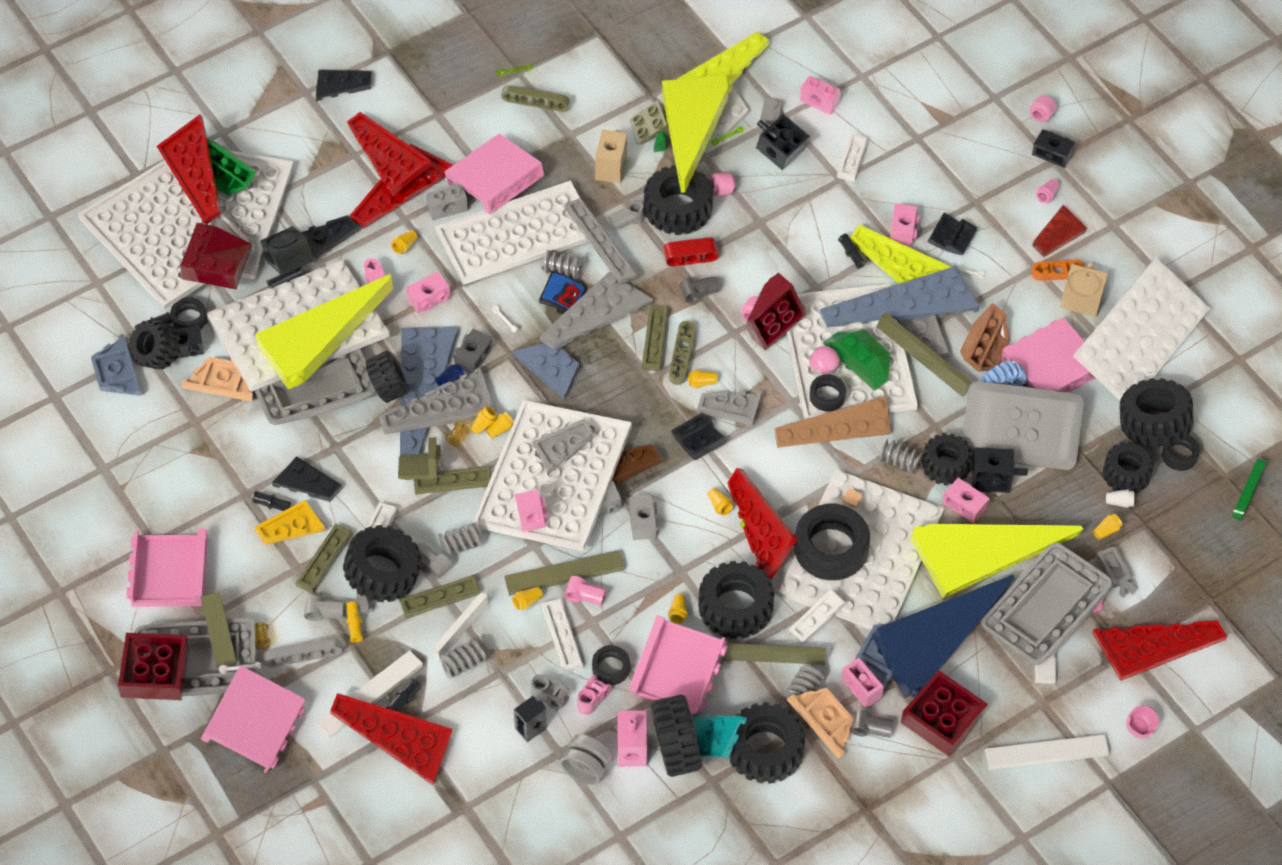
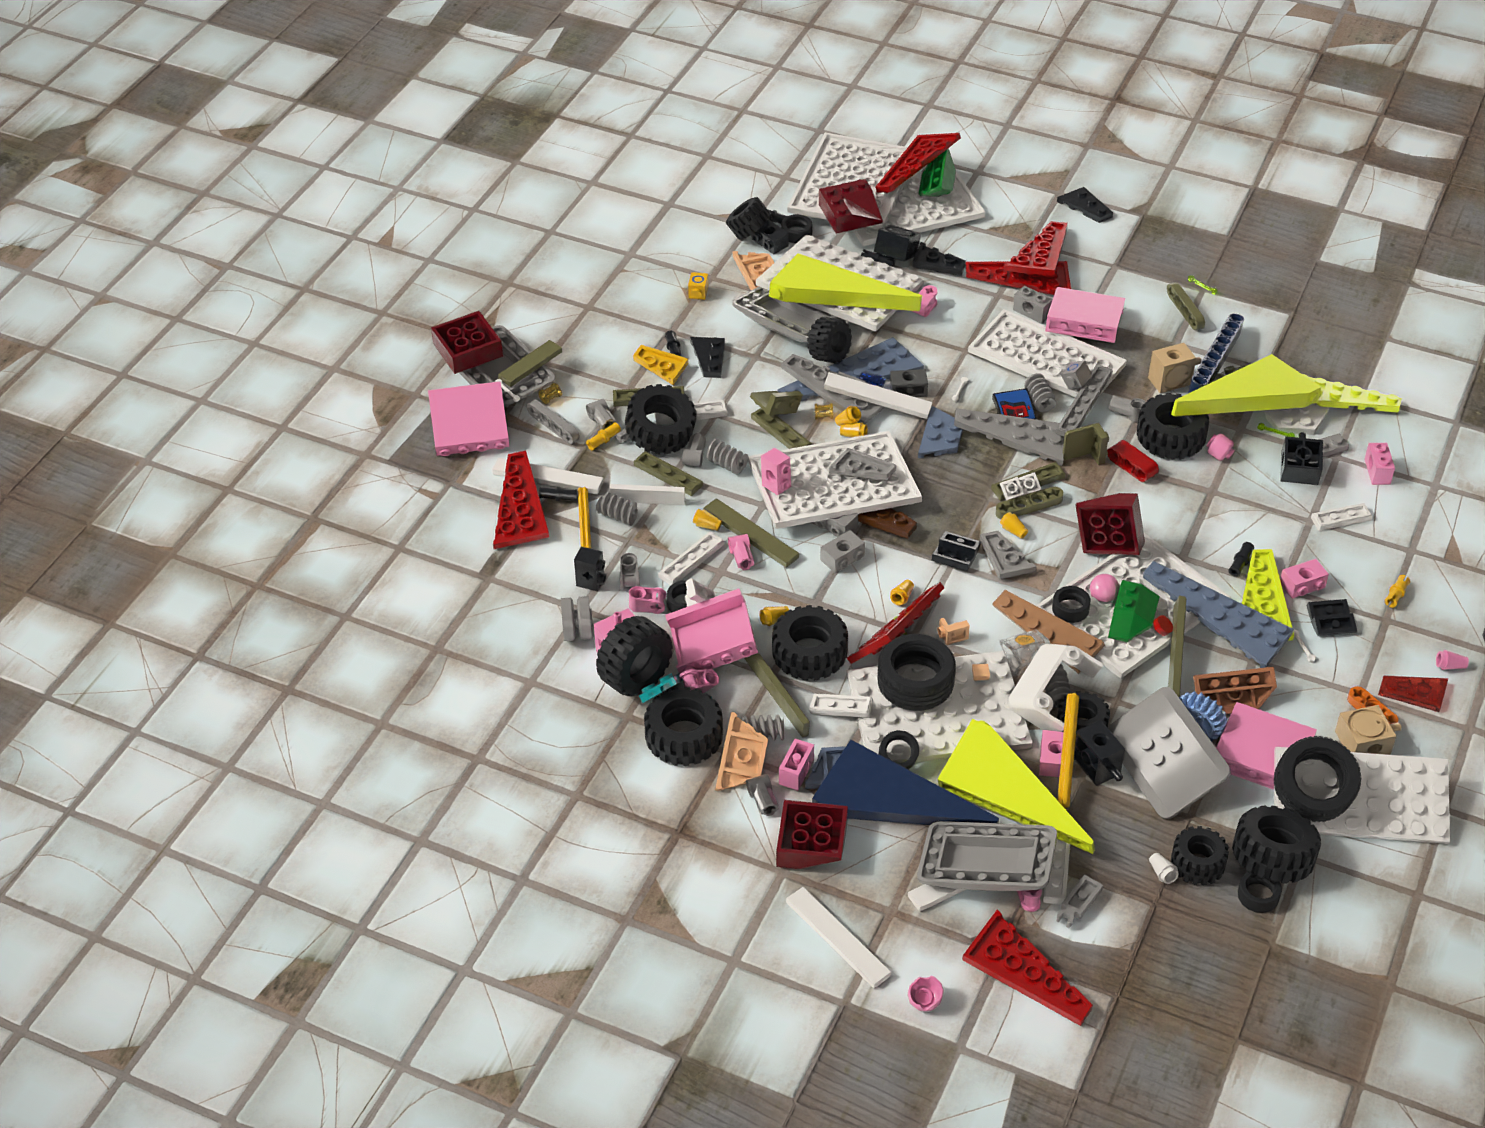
camera: 60 degrees right, 10 degrees down
(115, 369) = (713, 217): sand blue wing -> none
(167, 569) = (569, 320): bright pink panel -> none
(206, 437) = (698, 285): none -> yellow brick
(403, 242) = (973, 301): yellow cone -> none
(428, 292) = (939, 334): bright pink brick -> none
(463, 698) = (584, 518): none -> yellow axle
(475, 383) = (877, 395): none -> white tile
(571, 226) = (1076, 374): none -> light grey brick
(627, 118) = (1217, 352): none -> dark blue beam
(631, 653) = (697, 592): none -> white slope
(657, 263) = (1086, 440): none -> olive bracket
(663, 346) = (1020, 486): none -> white slope
(694, 289) = (1098, 479): flat silver piece -> none
(724, 703) = (700, 679): none -> bright pink piece
(789, 496) = (953, 633): none -> light nougat bracket
(852, 453) = (1022, 649): none -> clear slope
(893, 346) = (1163, 625): none -> red tile
(901, 462) = (1028, 695): none -> white windscreen
(907, 592) = (908, 738): none -> black tyre
(928, 332) = (1204, 649): light grey wing -> none
(956, 175) = (1397, 591): none -> yellow pin
(981, 487) = (1068, 748): none -> yellow axle
(1107, 360) = (1331, 753): none -> black tyre
(1108, 526) = (1122, 871): yellow cone -> none
(1249, 489) = (1269, 966): green beam -> none

